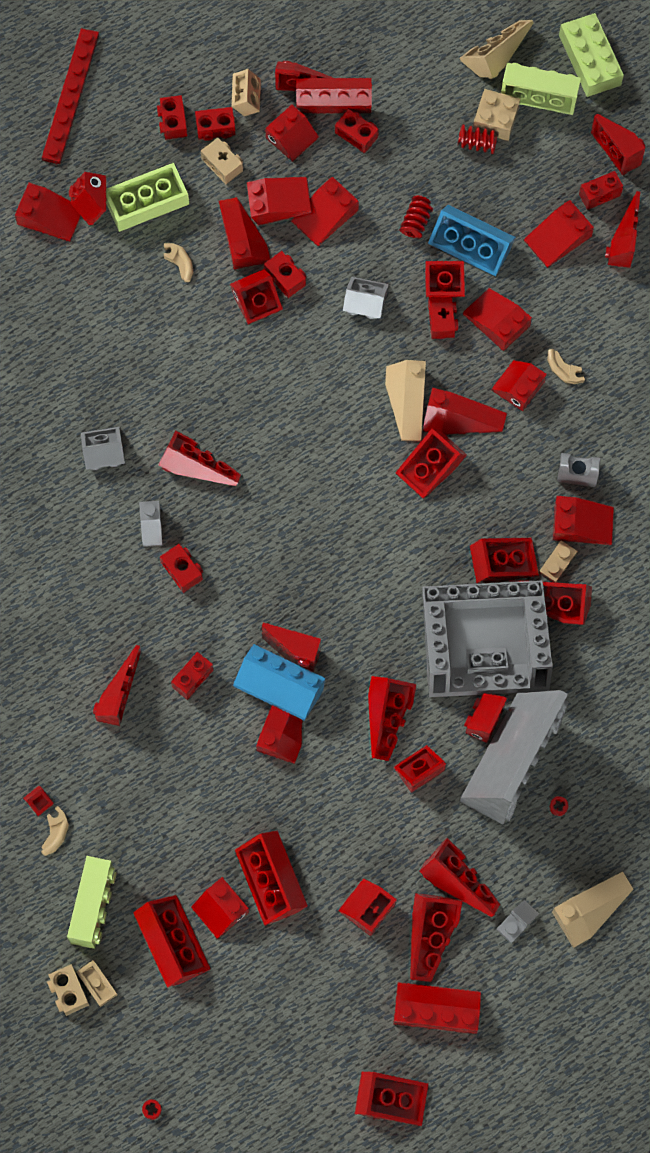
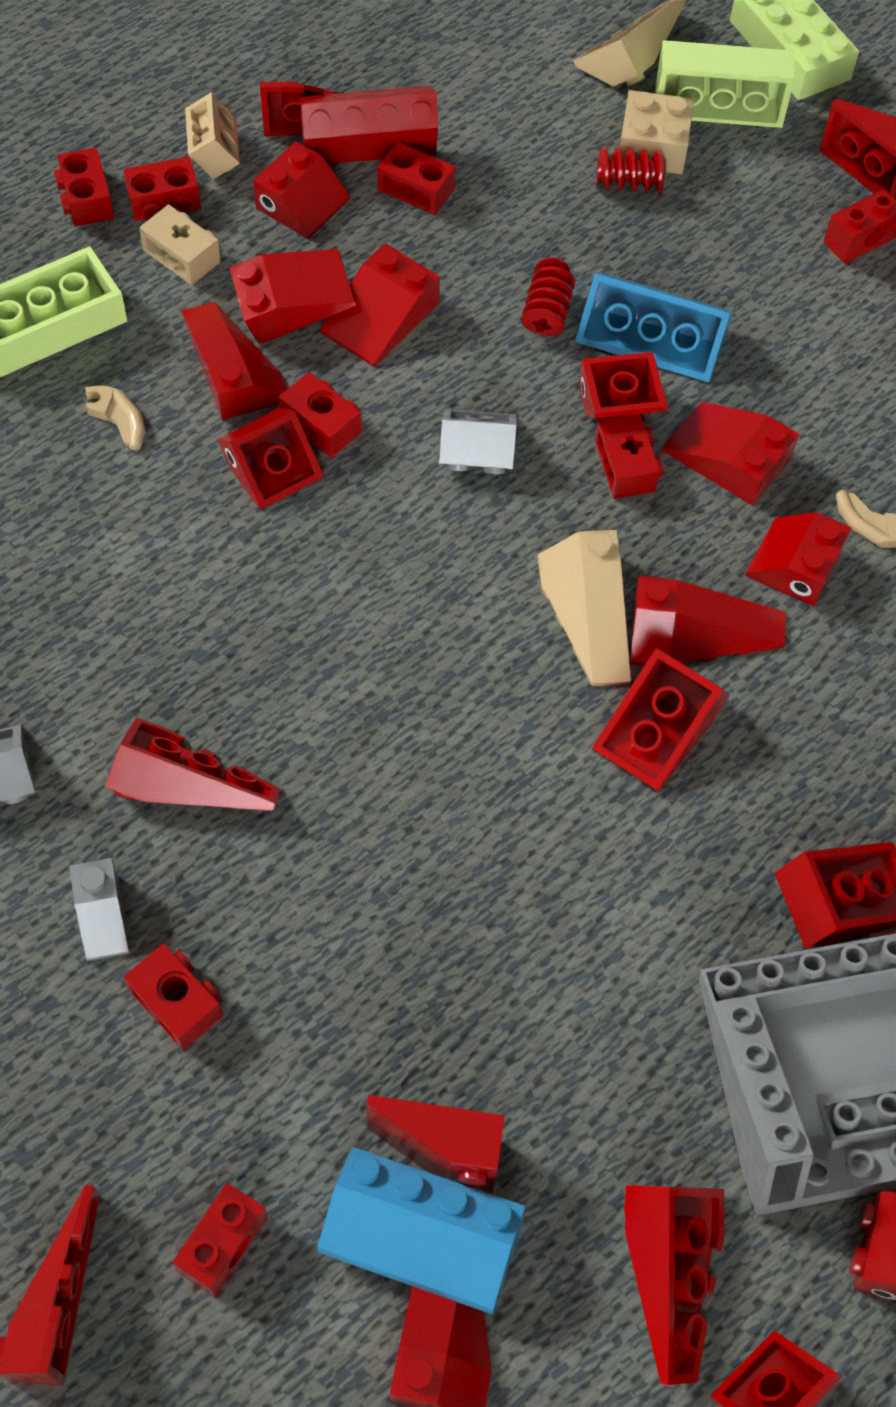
camera: 10 degrees left, 10 degrees down
(559, 234) = (810, 299): red slope -> none

